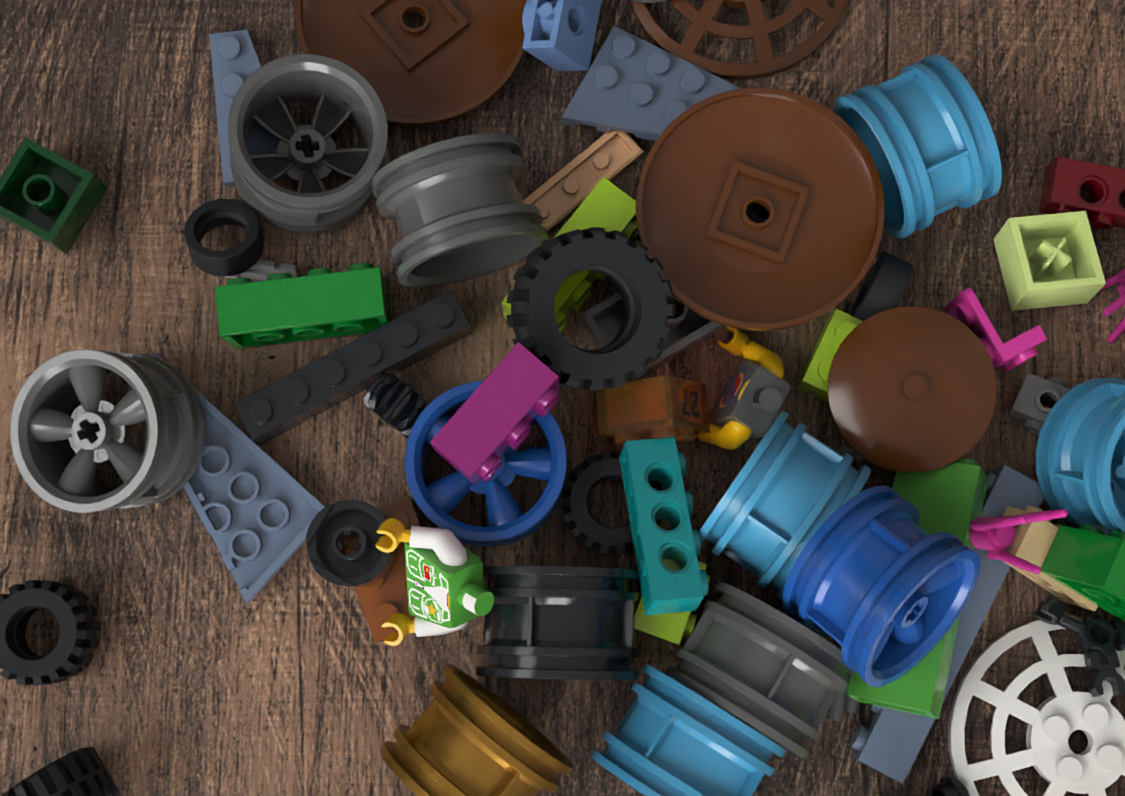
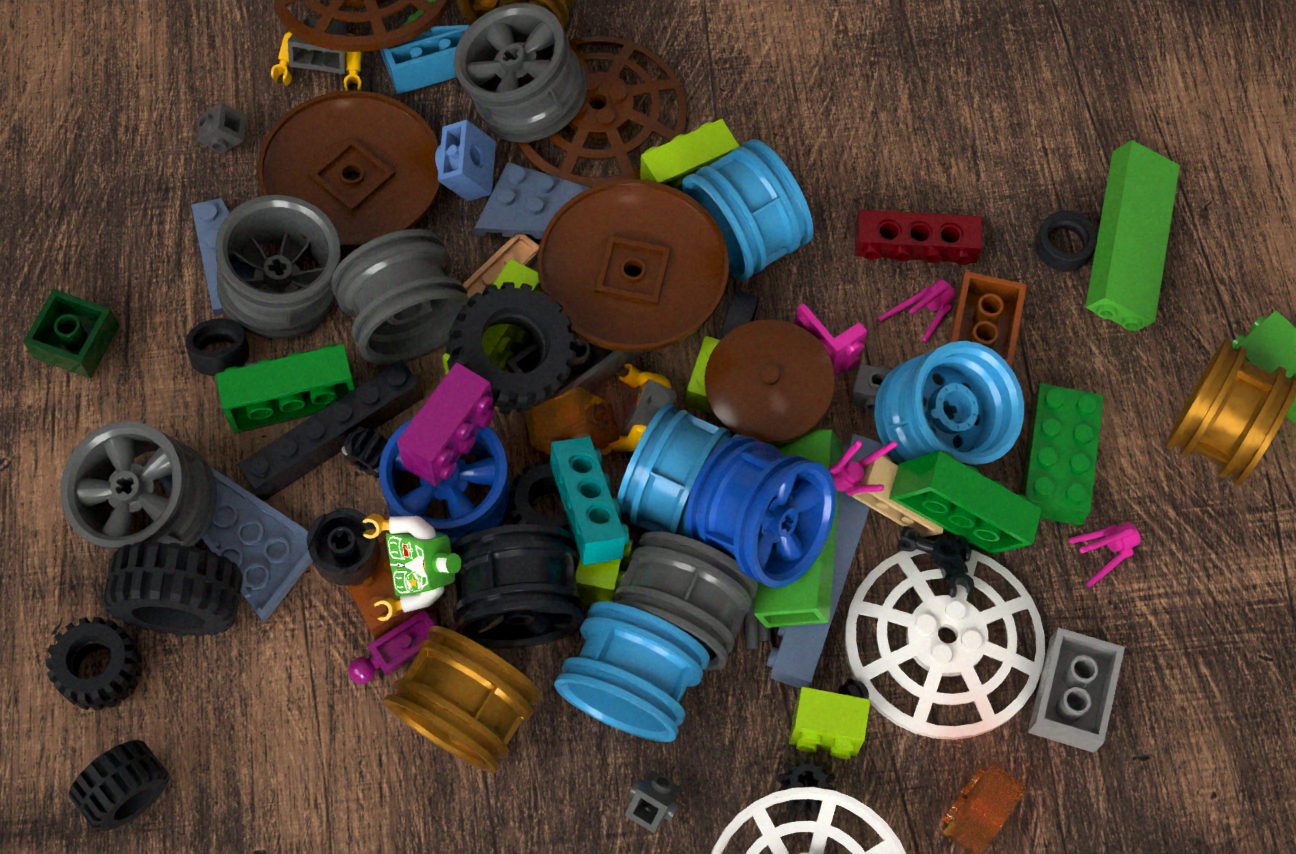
camera: 10 degrees left, 15 degrees down
(138, 568) = (173, 589): none -> black tyre
(401, 663) = (392, 649): none -> magenta plate
(849, 59) = (687, 154): none -> lime brick
(1049, 260) = (864, 284): yellowish green brick -> none

